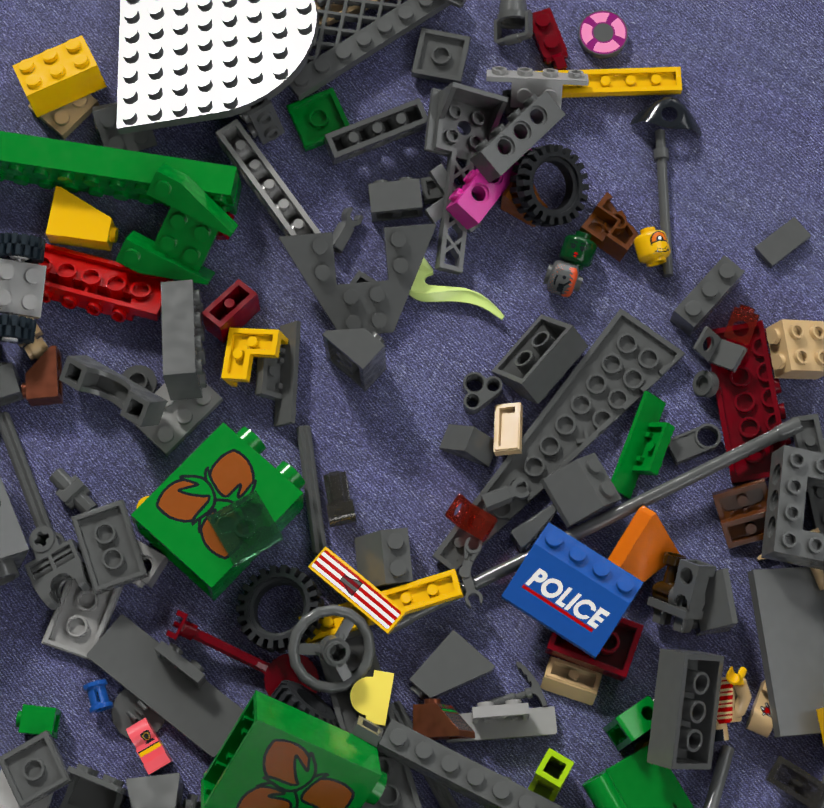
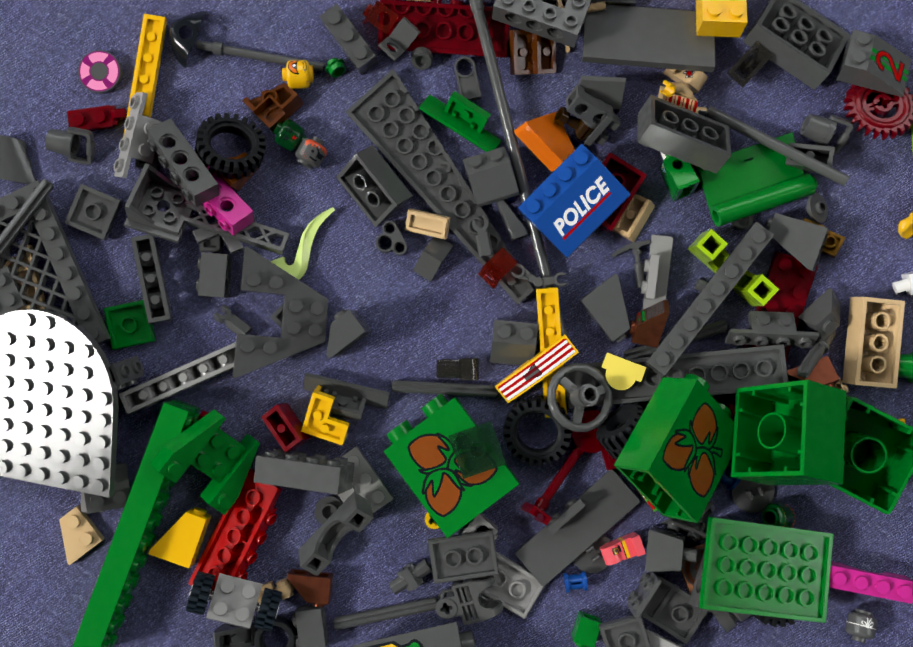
camera: 80 degrees left, 15 degrees up
(59, 76) = (48, 536): yellow brick -> none
(367, 731) = (650, 381): dark grey tile -> none
(670, 288) = (335, 67): none -> green plate

